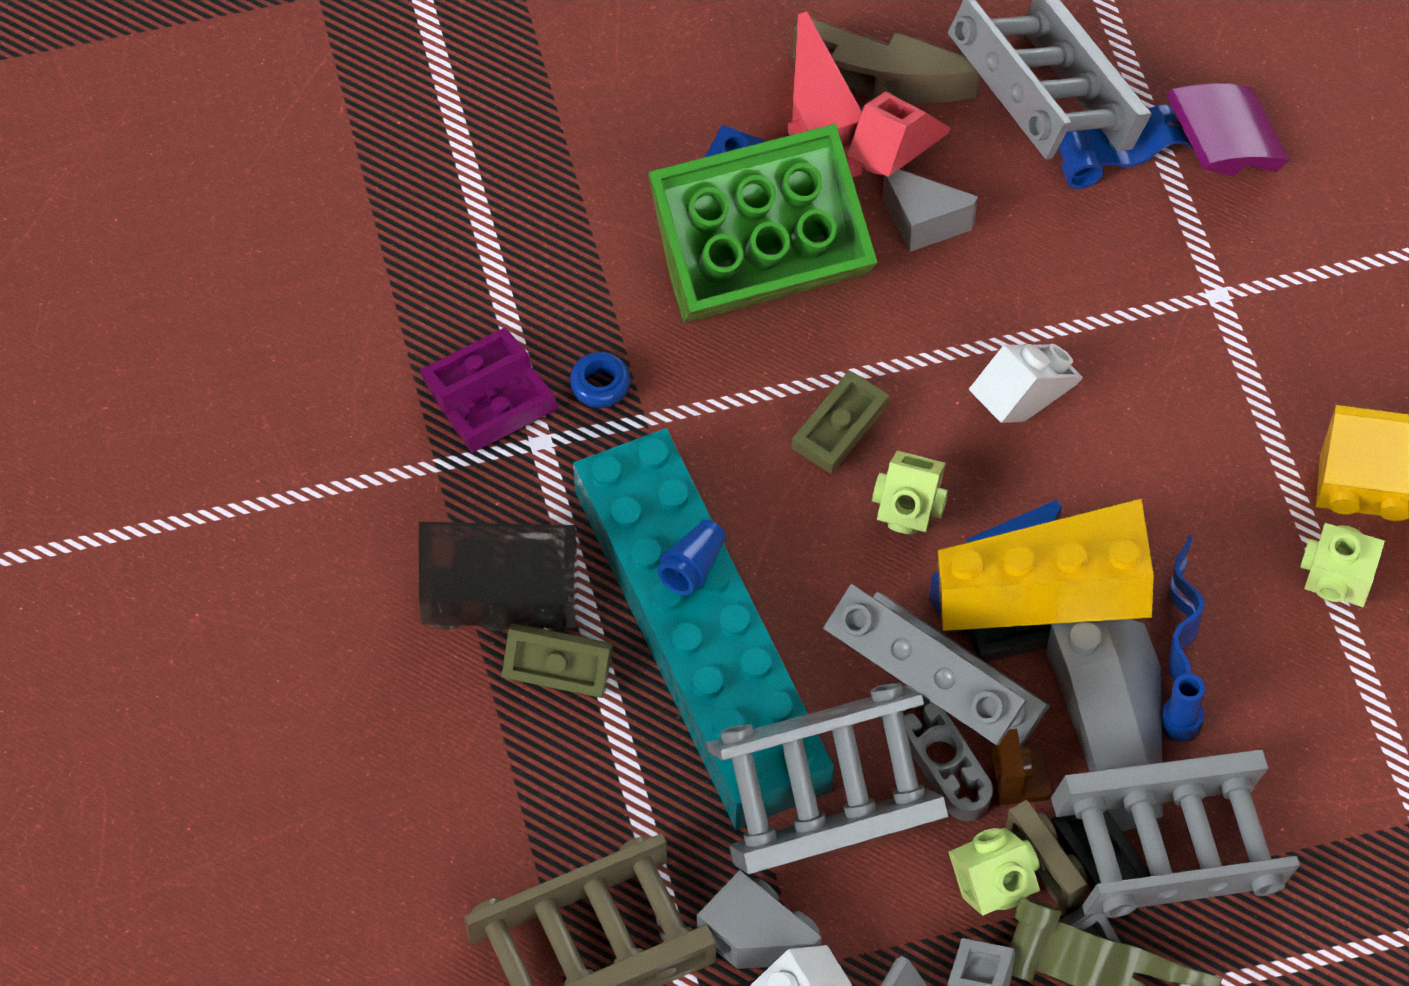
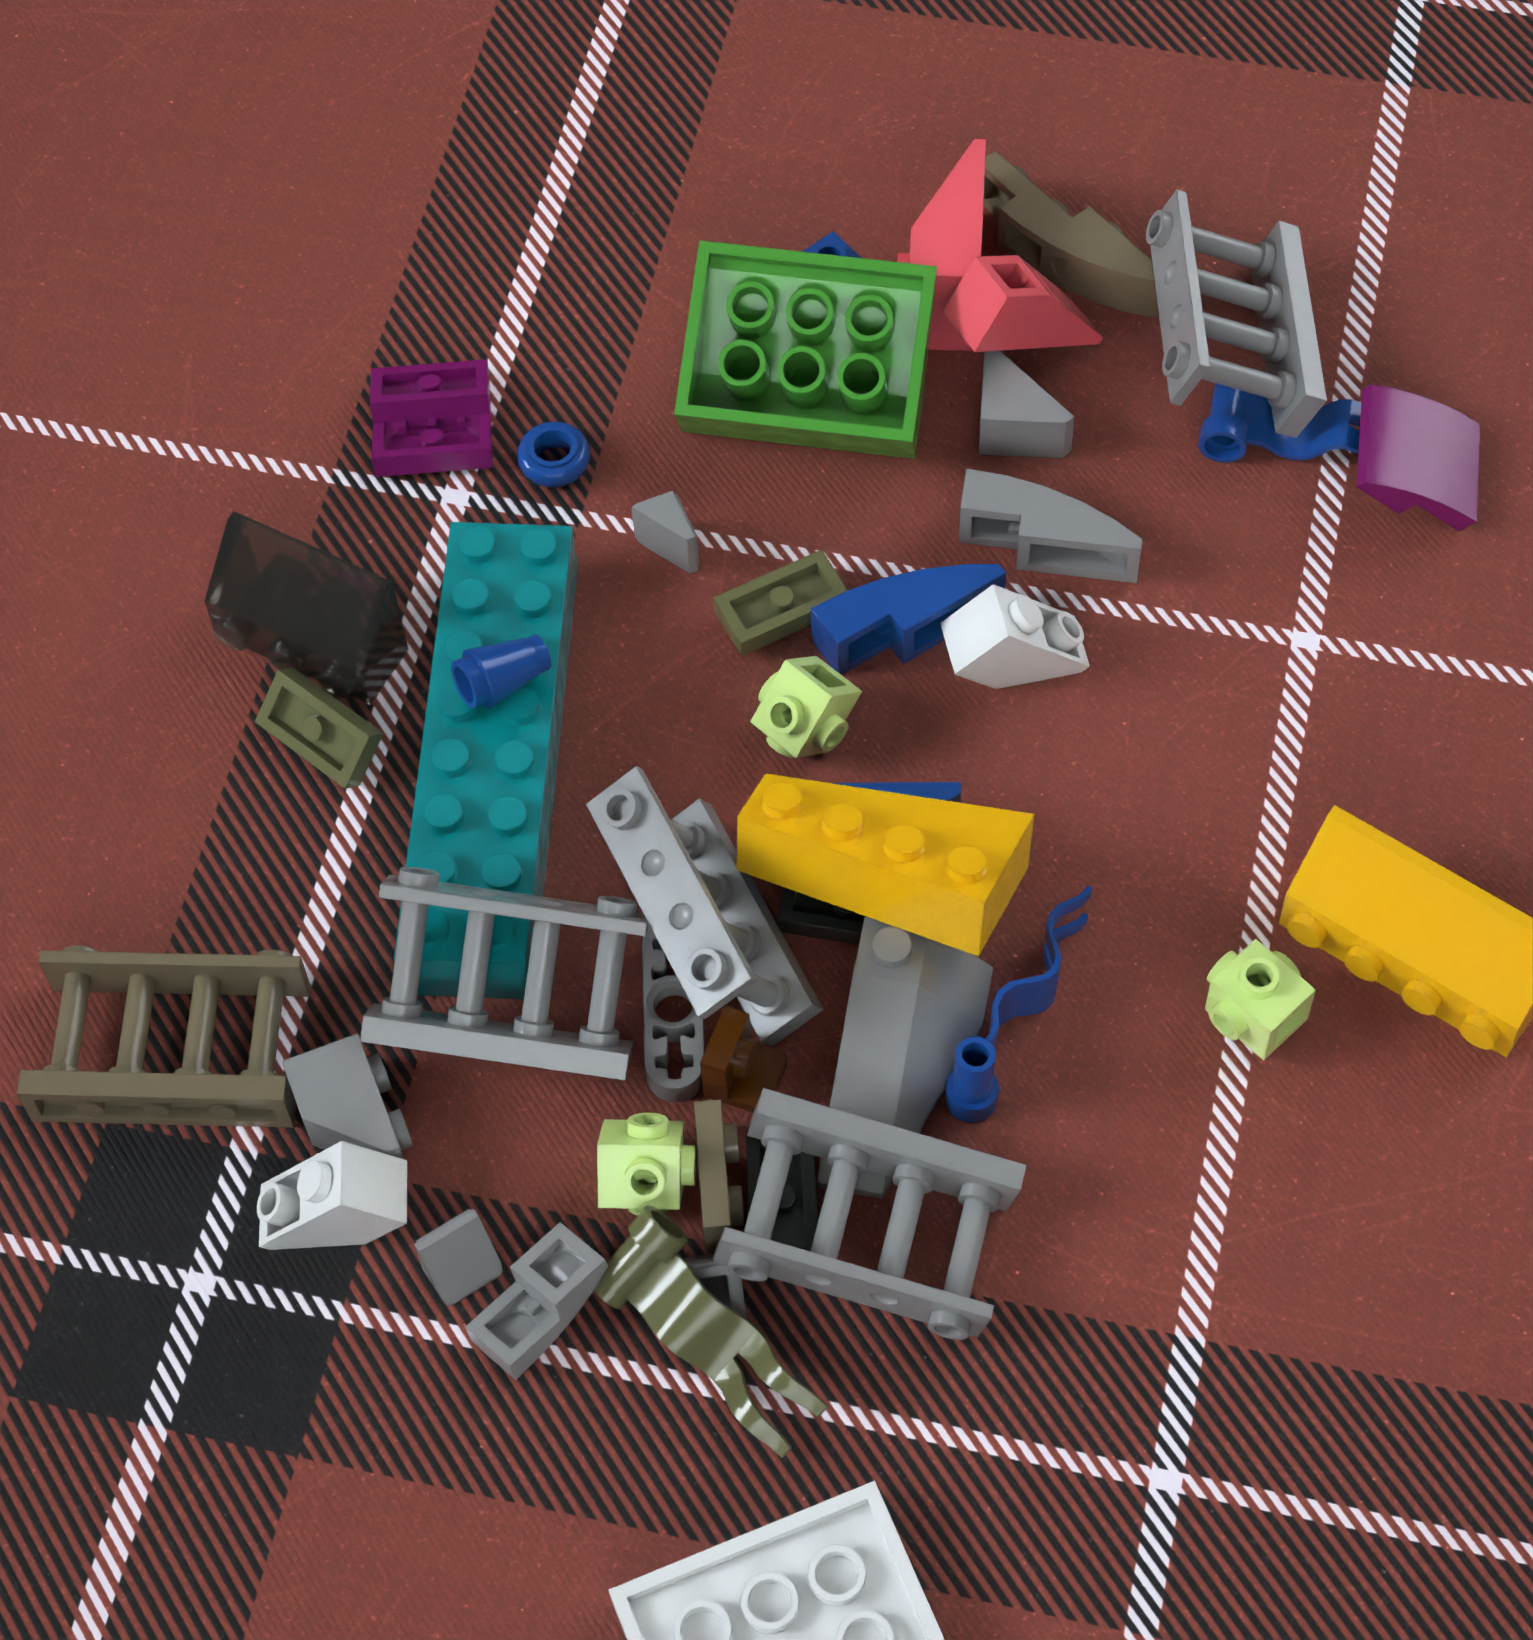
camera: 30 degrees right, 0 degrees up
(727, 403) = (666, 530): none -> light grey slope
(933, 393) = (896, 613): none -> blue slope
(998, 288) = (1046, 528): none -> light grey slope

